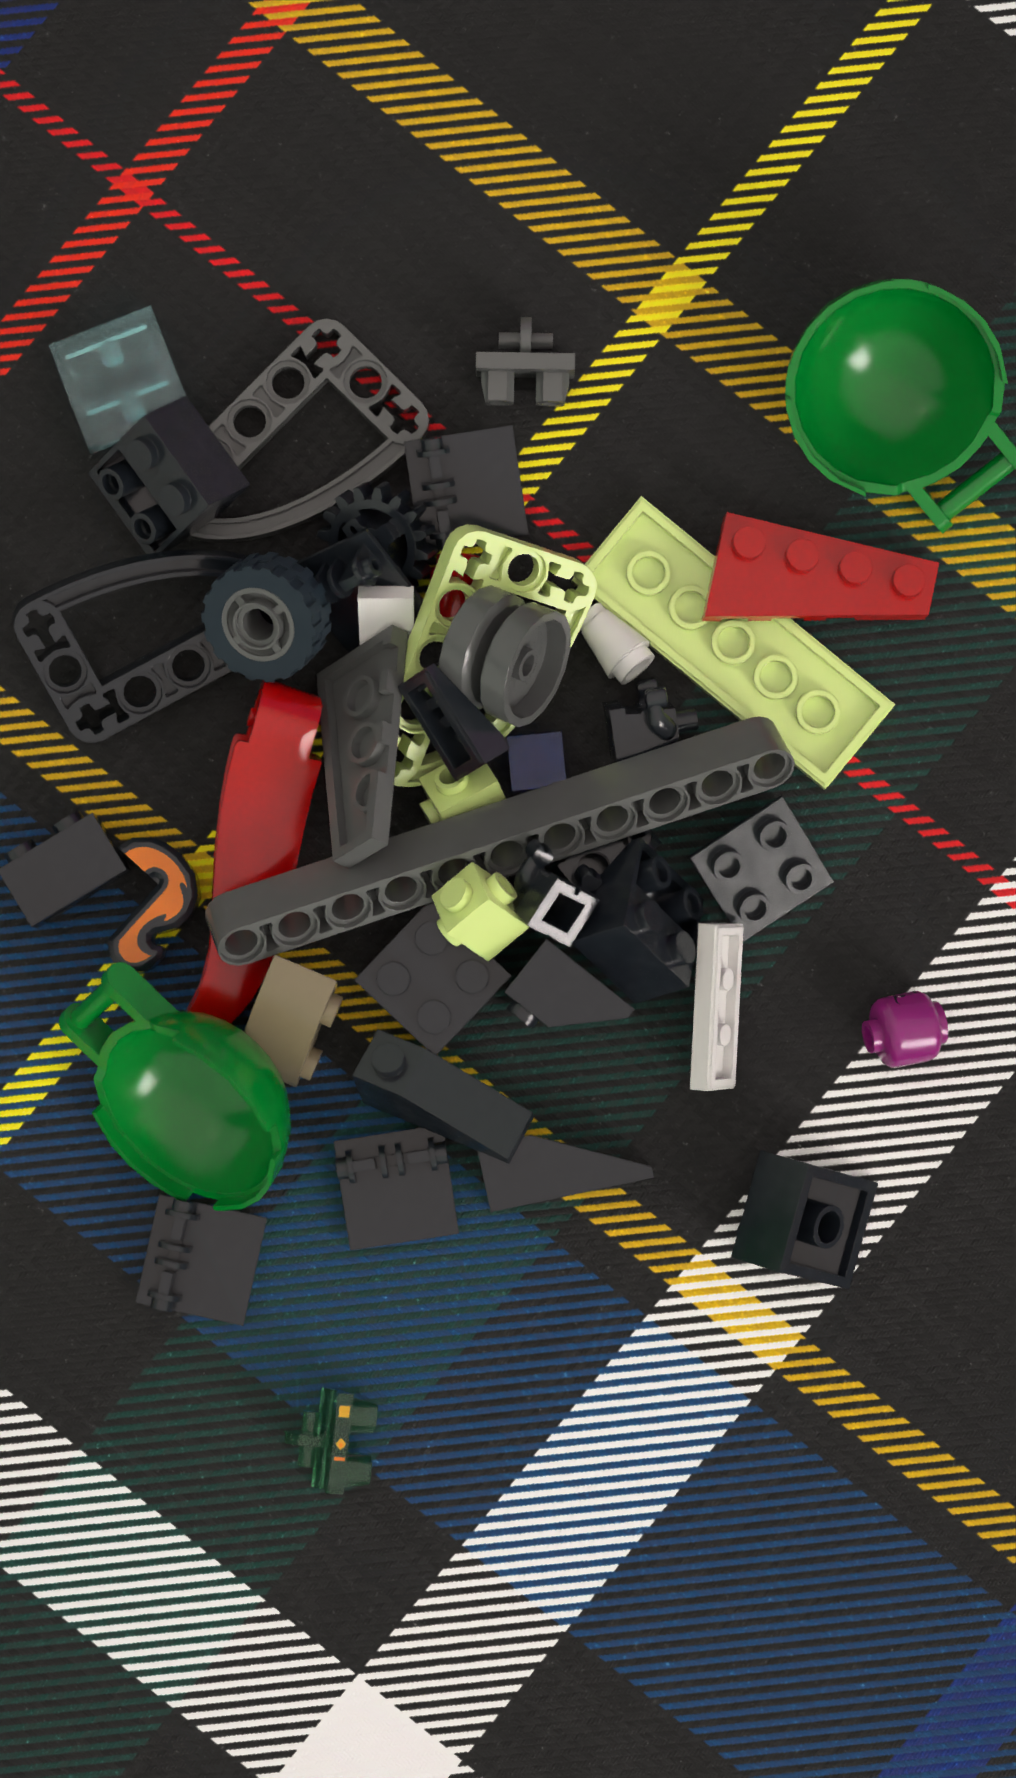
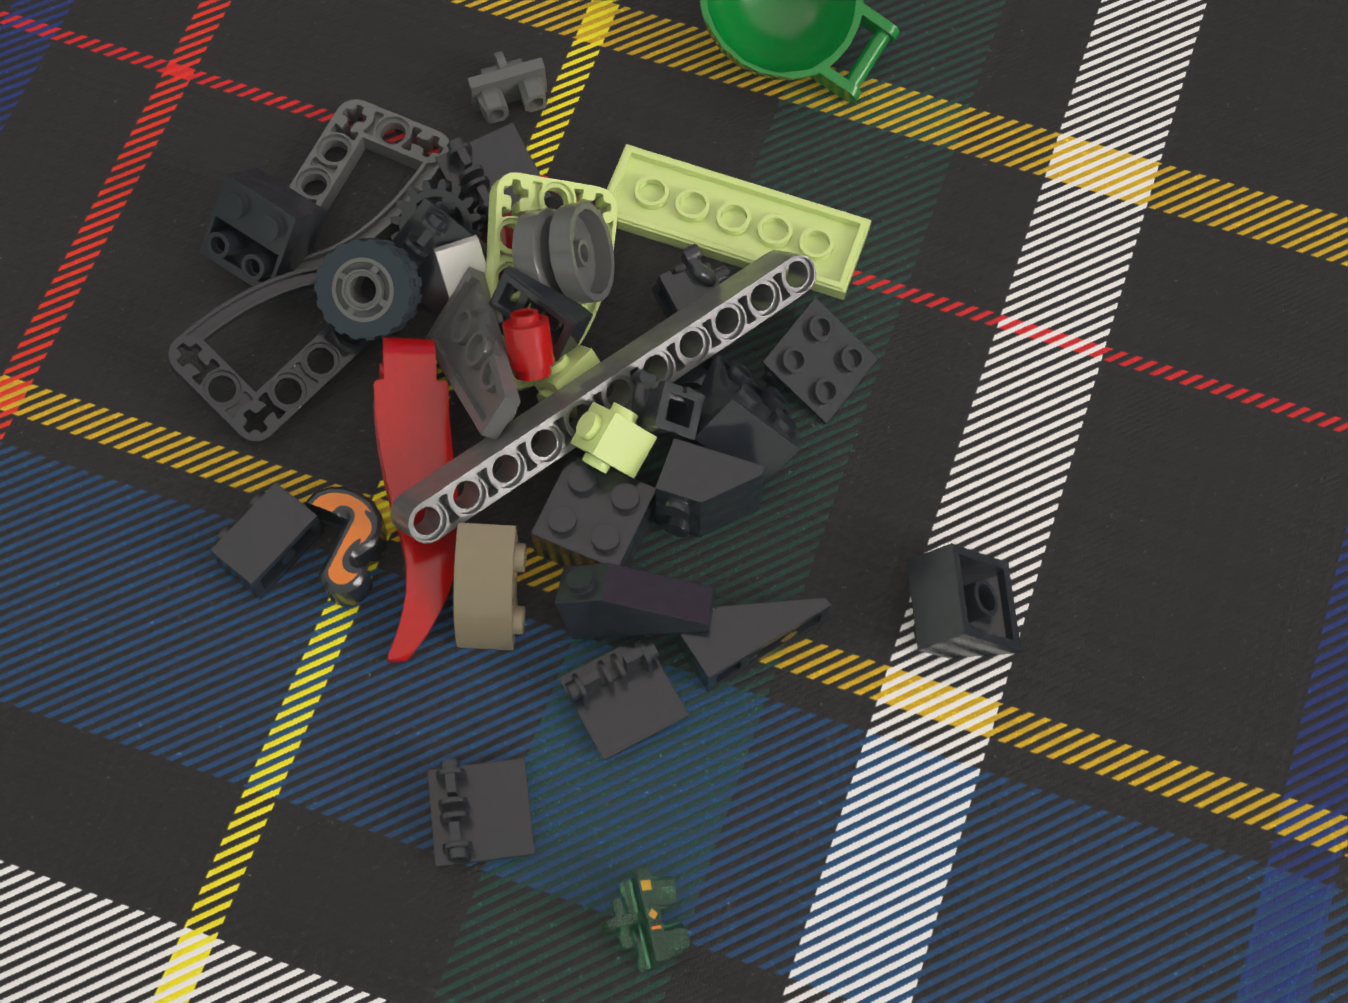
camera: 20 degrees left, 20 degrees down
(116, 375) = (194, 182): clear light blue slope -> none
(182, 1093) = (418, 662): green windscreen -> none
(424, 765) = (529, 344): none -> red brick
(536, 760) = (612, 338): clear blue tile -> none
(616, 645) = (647, 245): white cone -> none
(716, 1006) = (827, 467): white tile -> none
(796, 573) = (756, 155): red wing -> none
(905, 1029) = (979, 436): magenta head -> none

